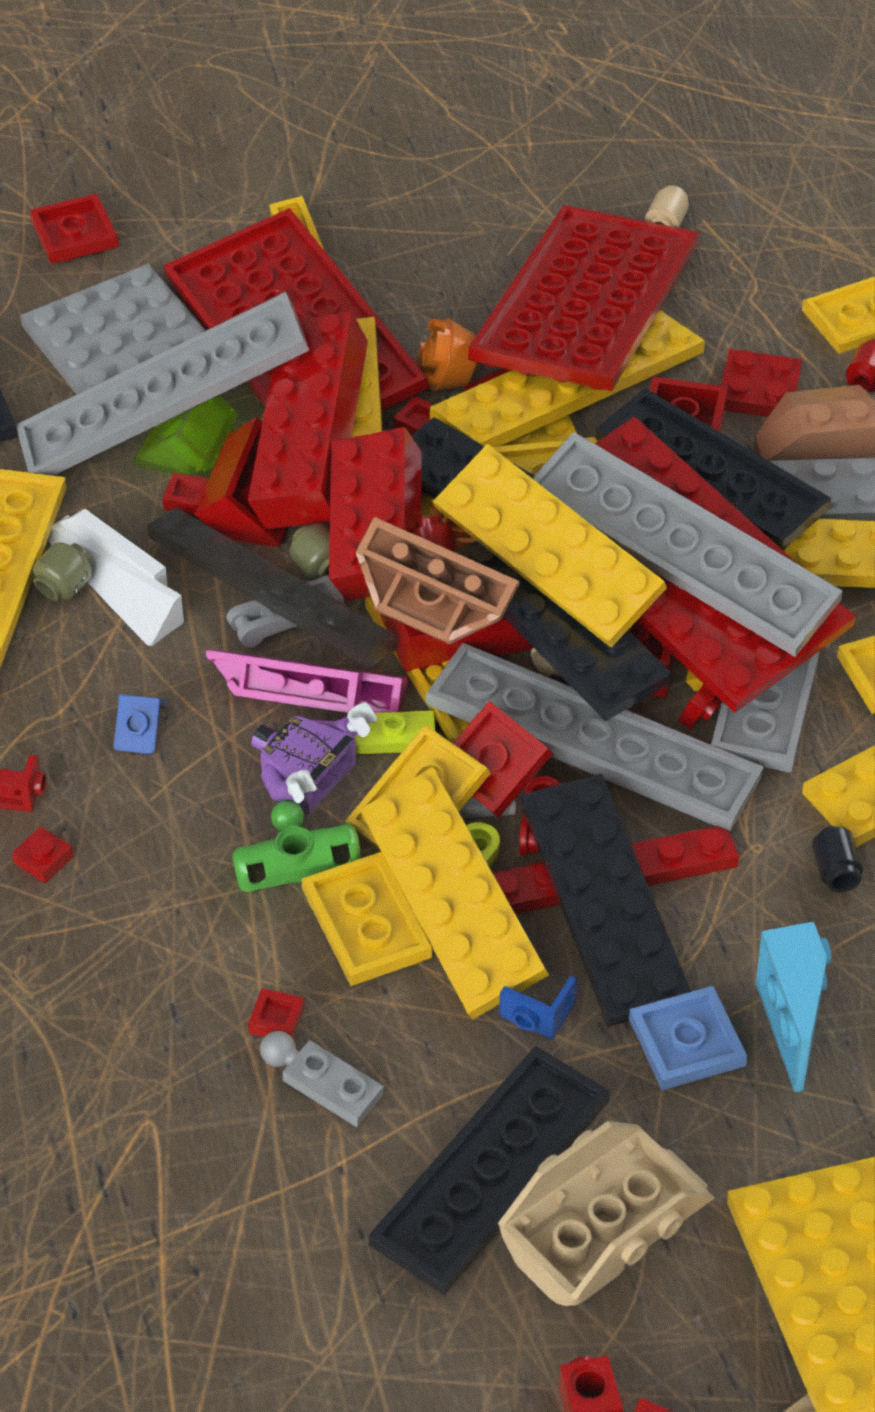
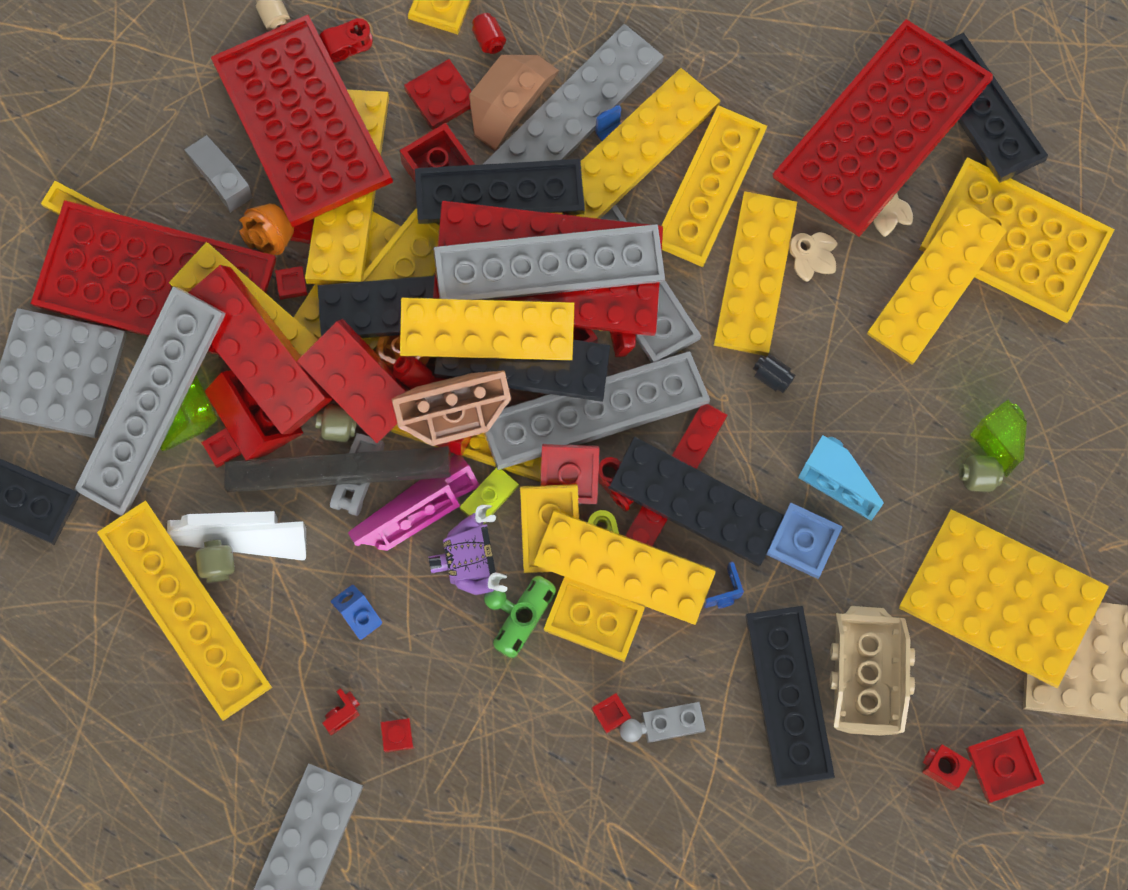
camera: 50 degrees left, 25 degrees up
(460, 292) = (219, 173): none -> light grey slope
(713, 275) = (344, 39): none -> red piece

